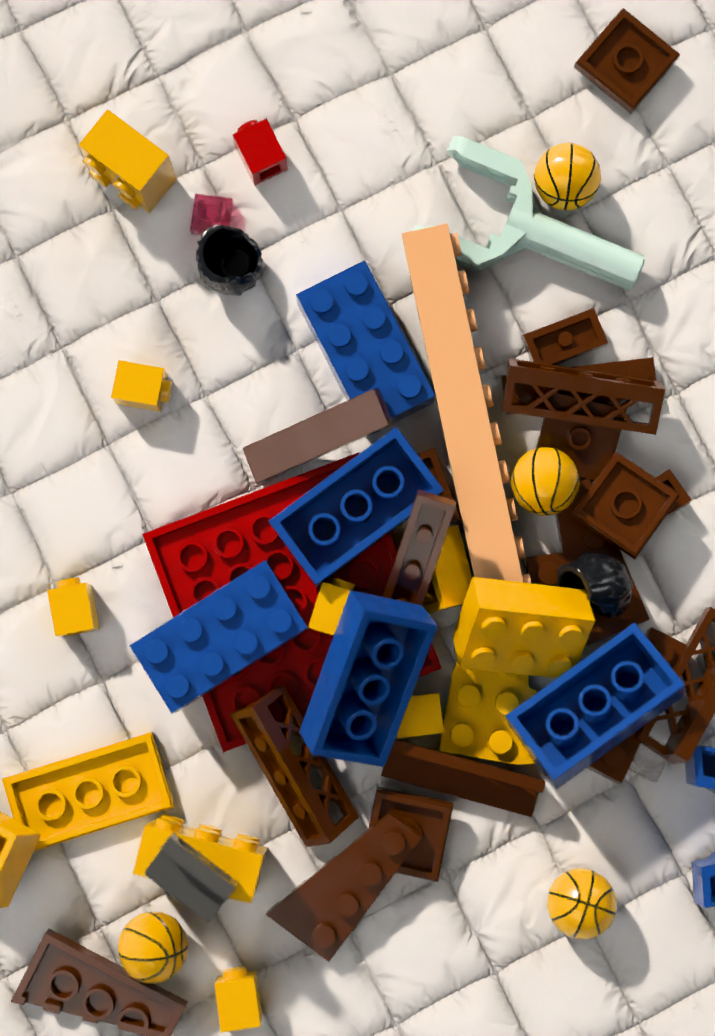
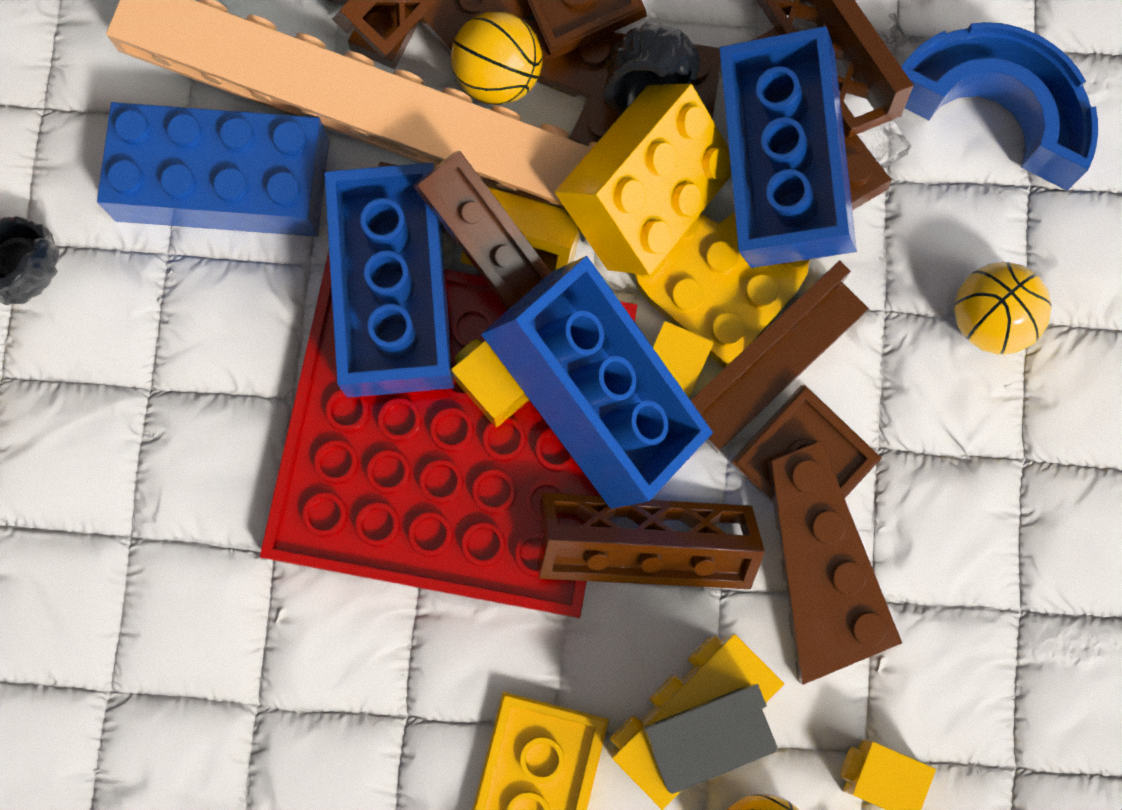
camera: 55 degrees left, 5 degrees down
(73, 608) = (293, 696): yellow brick -> none
(141, 386) = (84, 452): yellow brick -> none
(218, 637) = (439, 532): blue brick -> none
(317, 435) = (277, 278): reddish brown tile -> none

